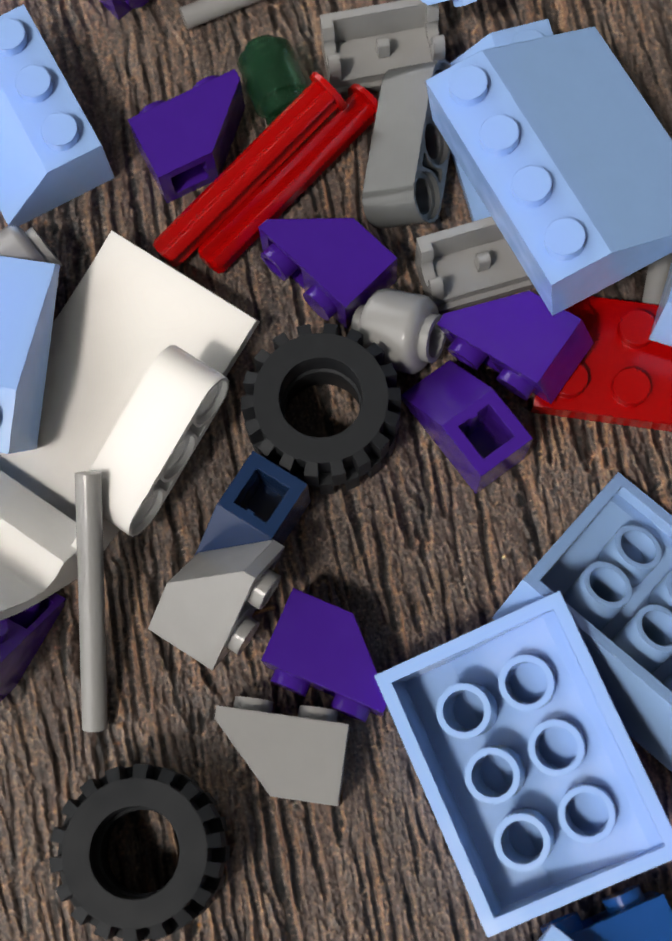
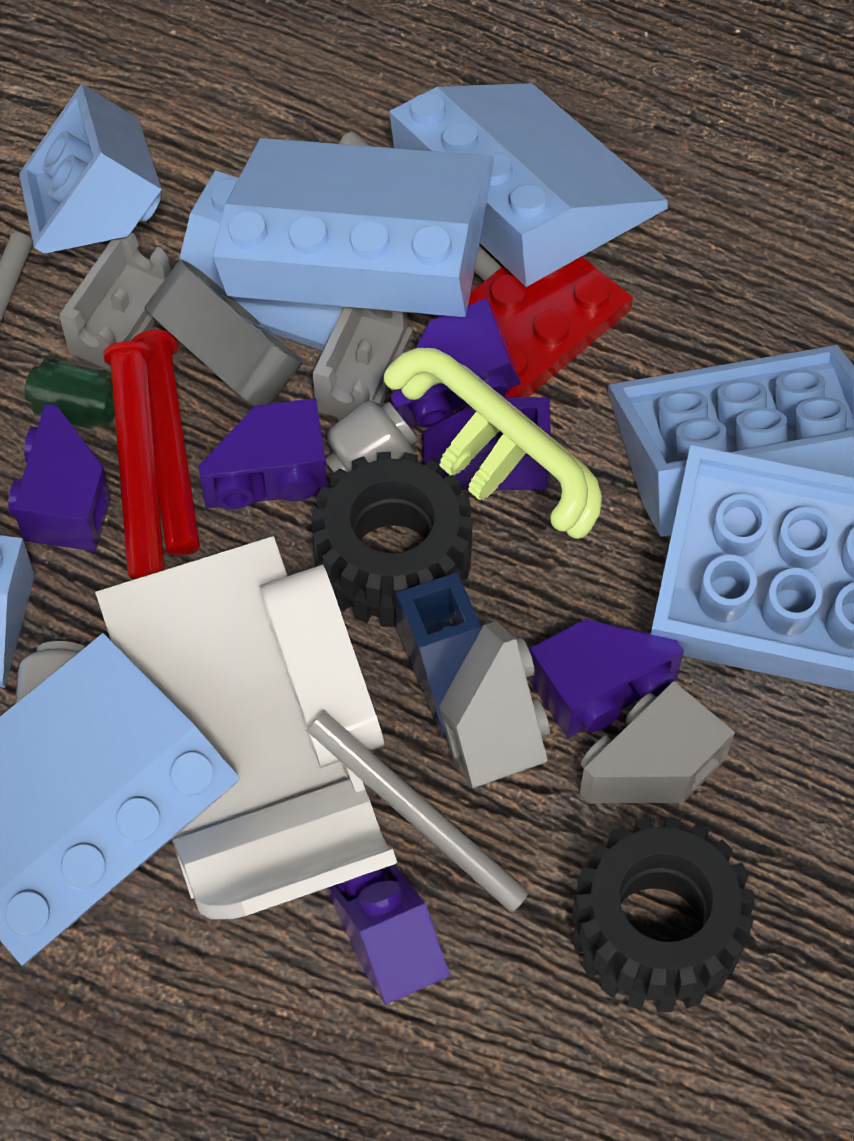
camera: 60 degrees left, 15 degrees down
(463, 436) = (581, 495): none -> yellowish green piece

